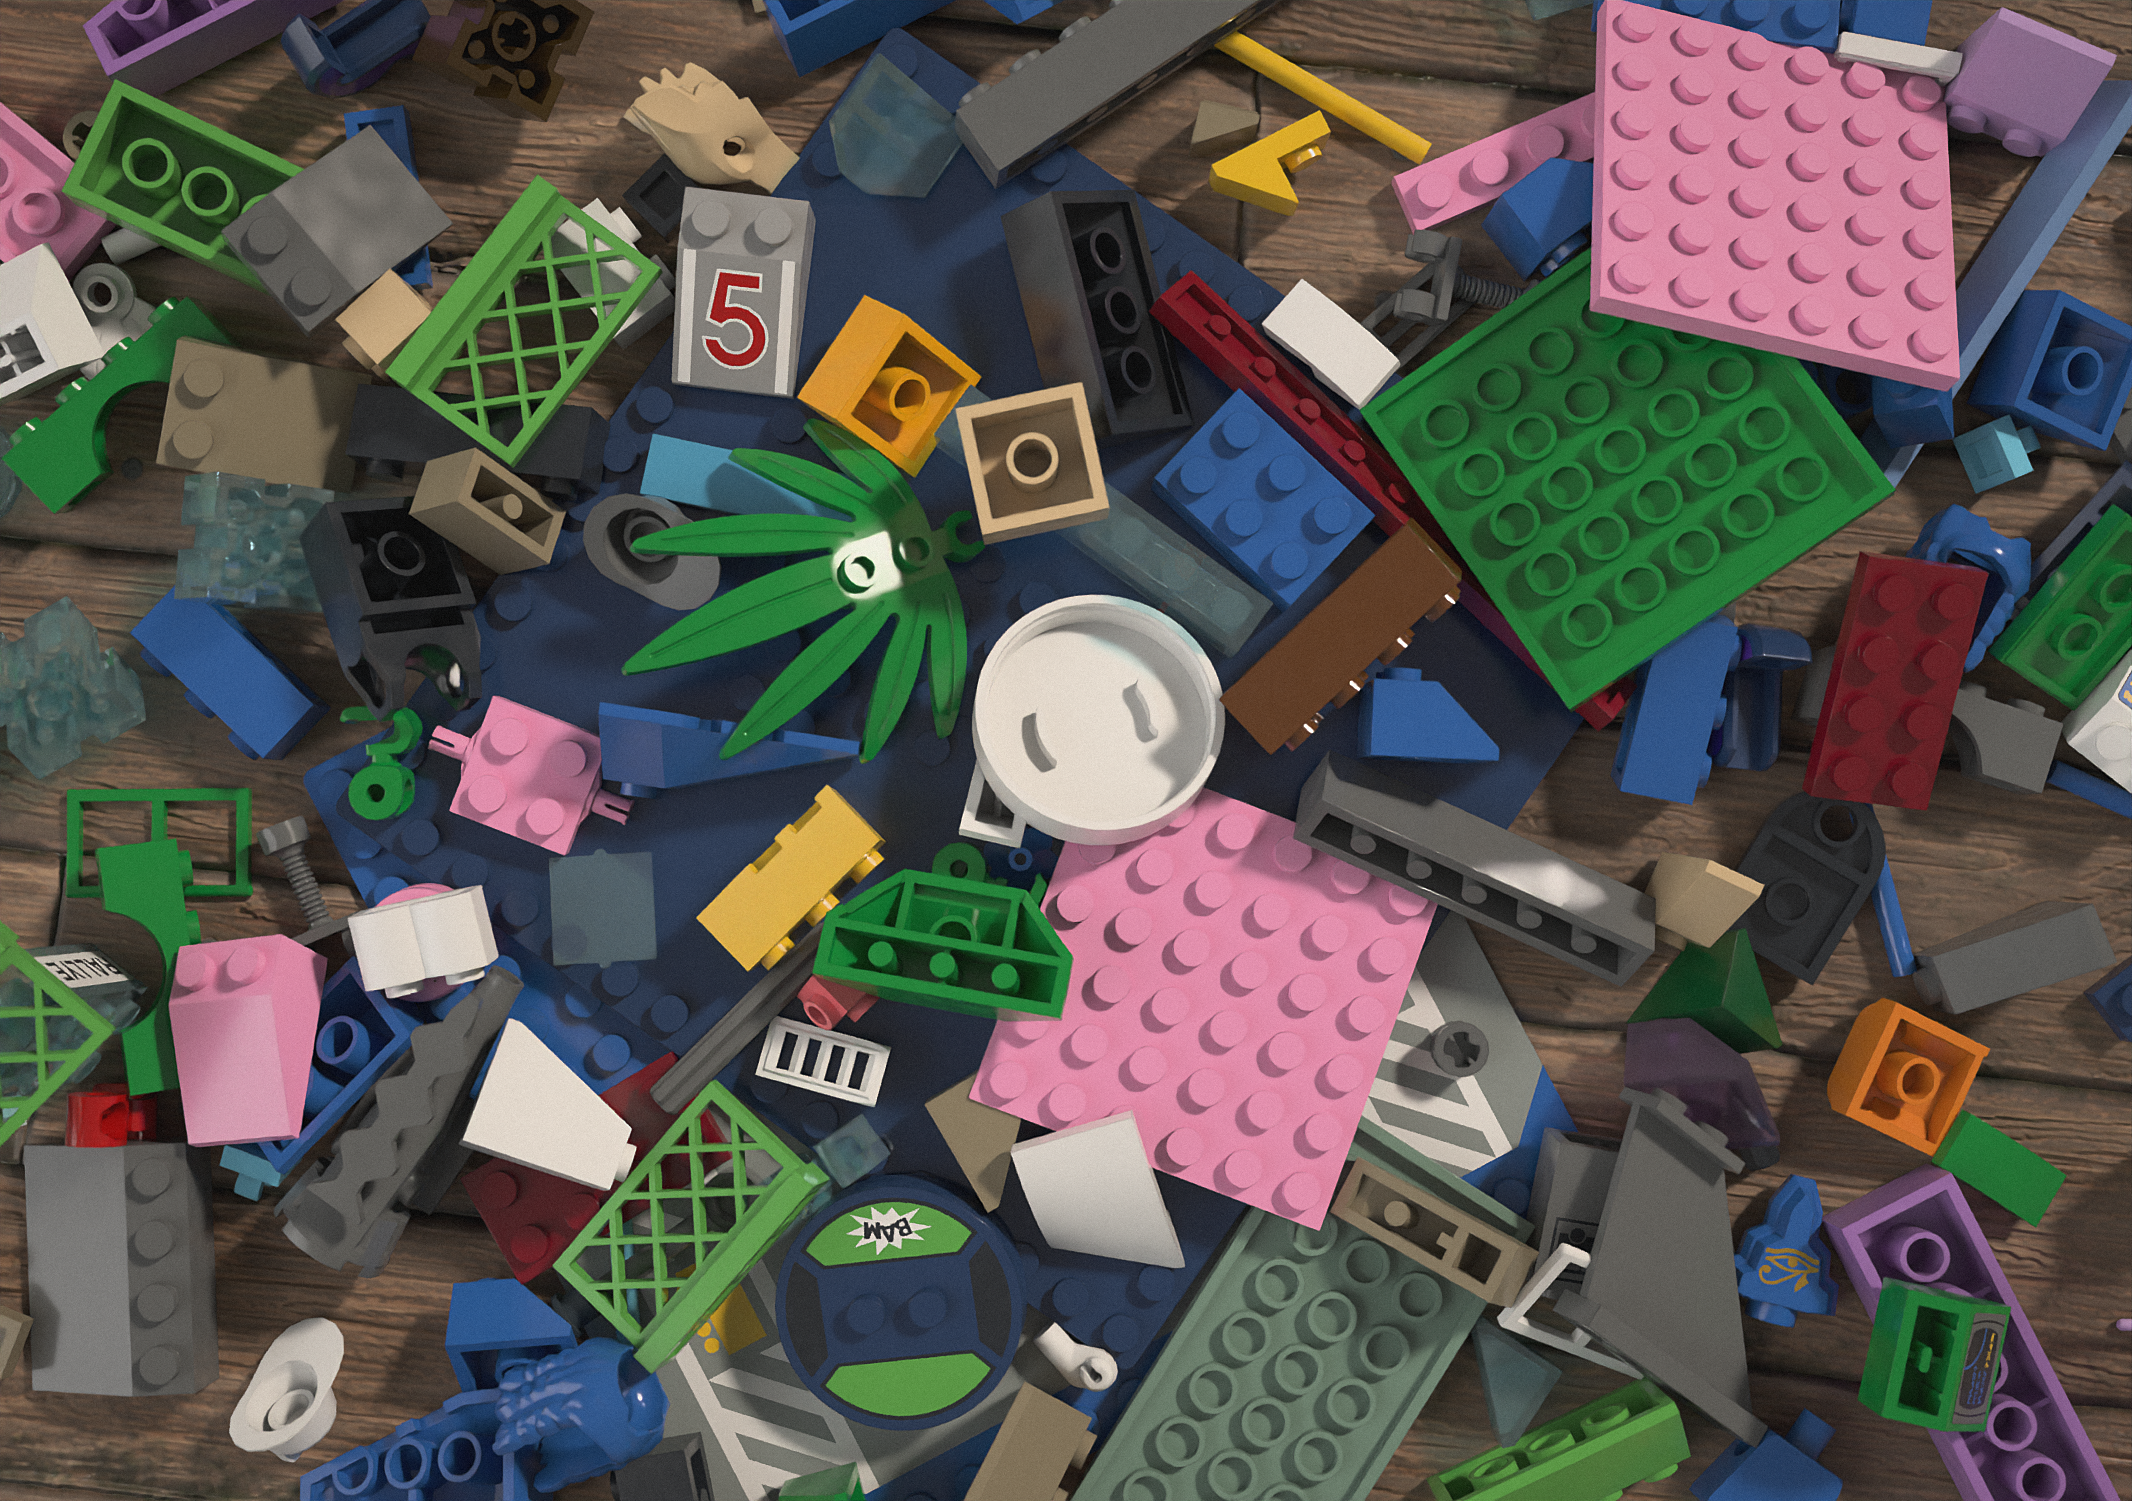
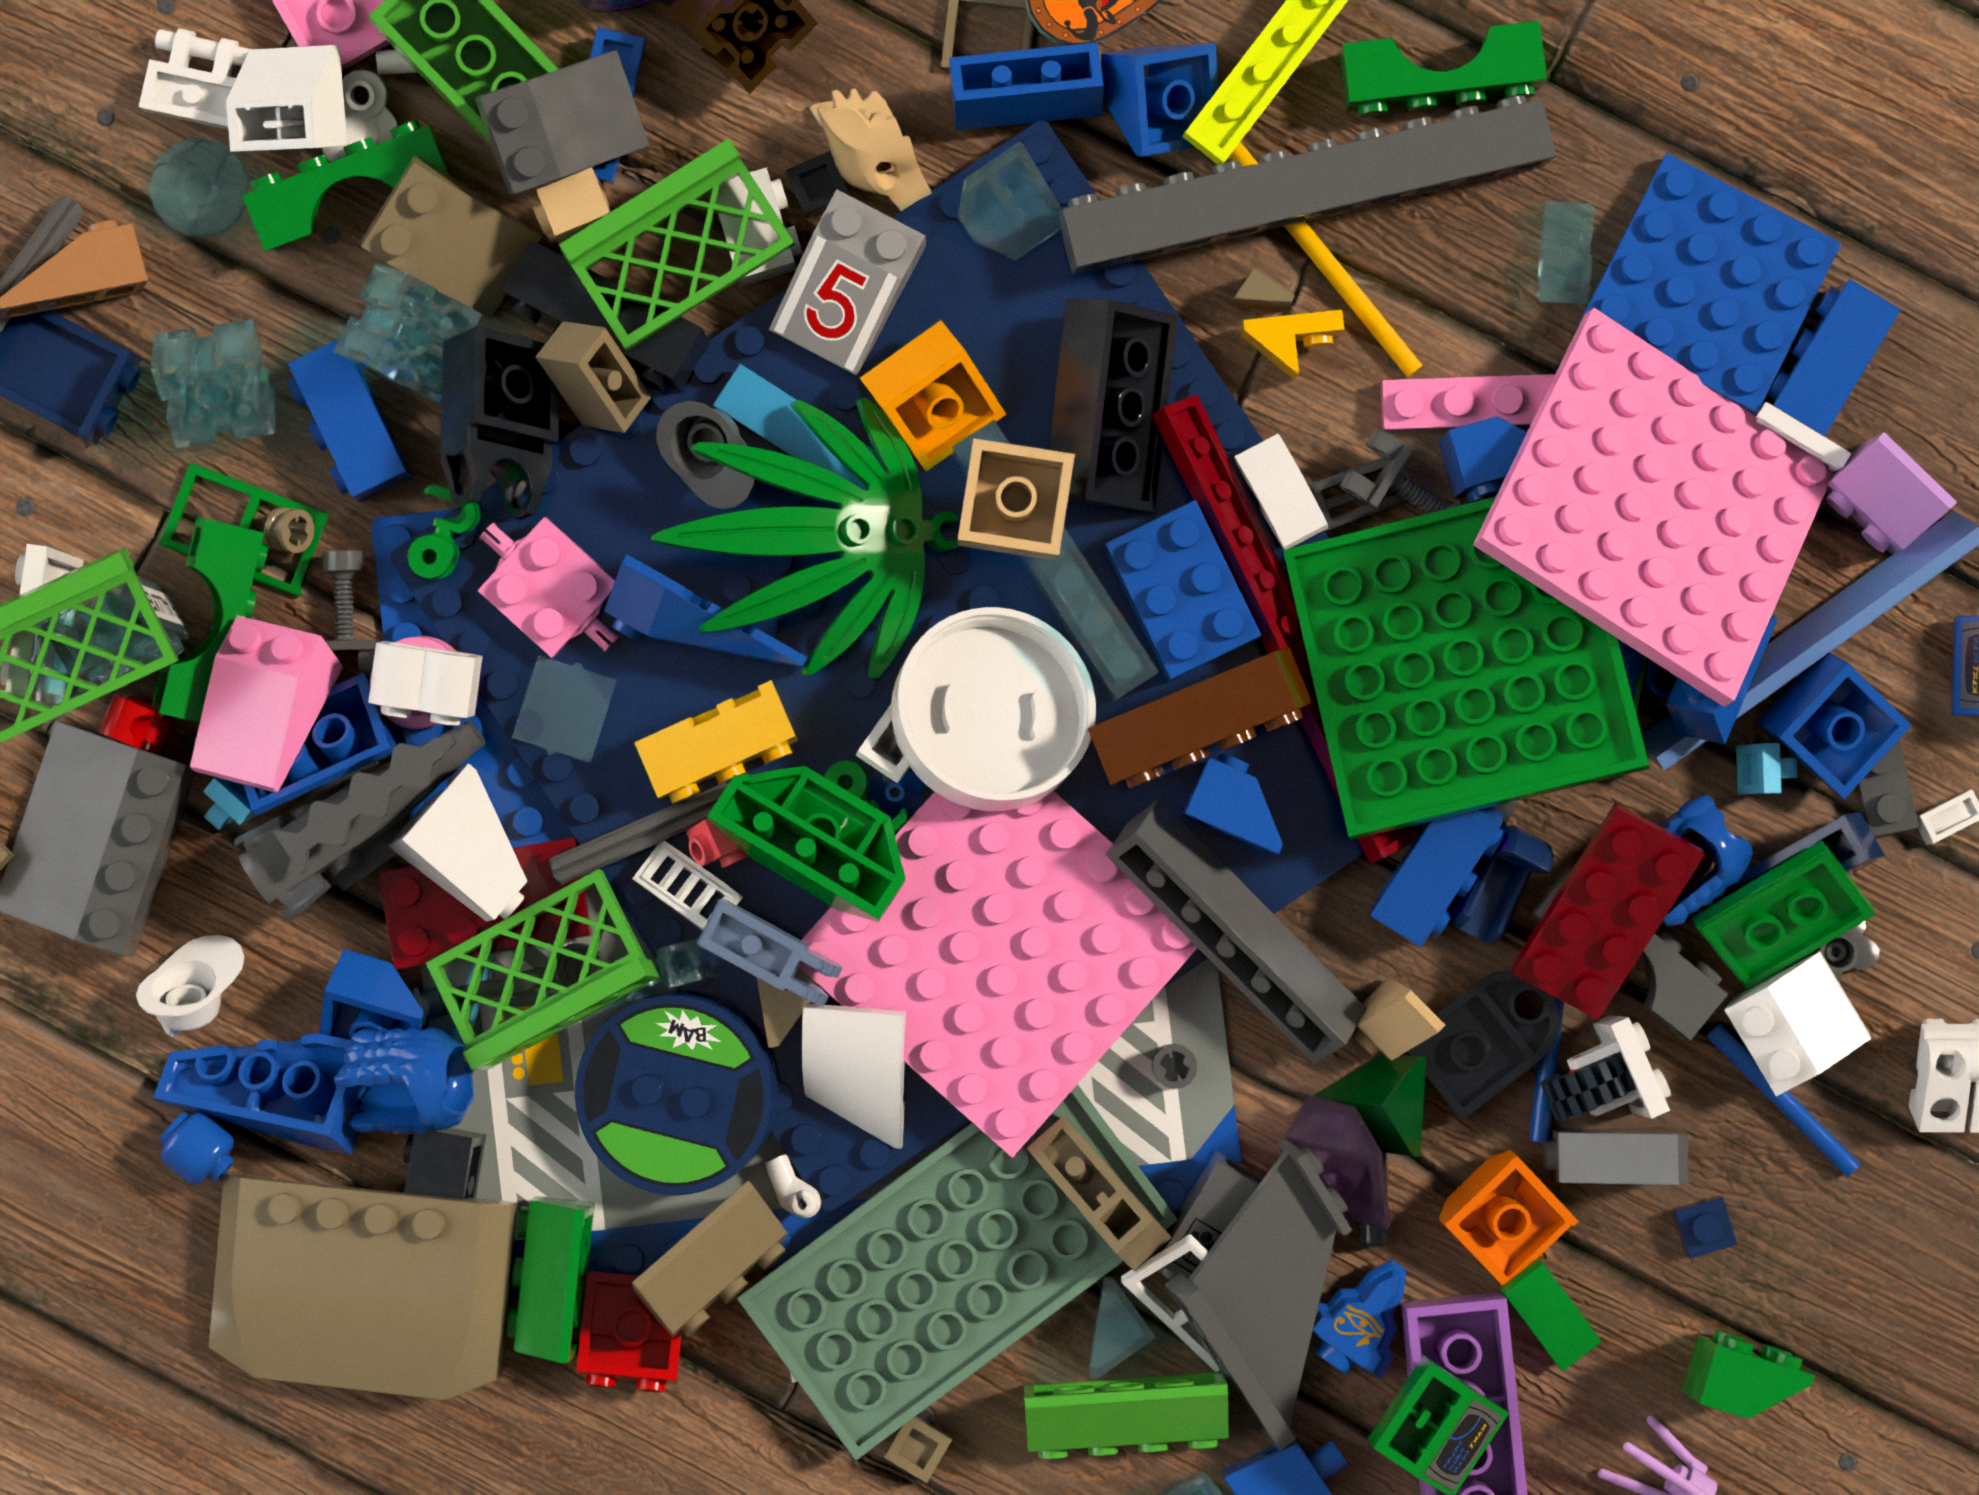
camera: 25 degrees right, 0 degrees up
(220, 813) = (289, 530): none -> dark tan bush
(941, 1103) = (764, 950): none -> sand blue hinge
(1967, 868) = (1609, 1075): none -> plate

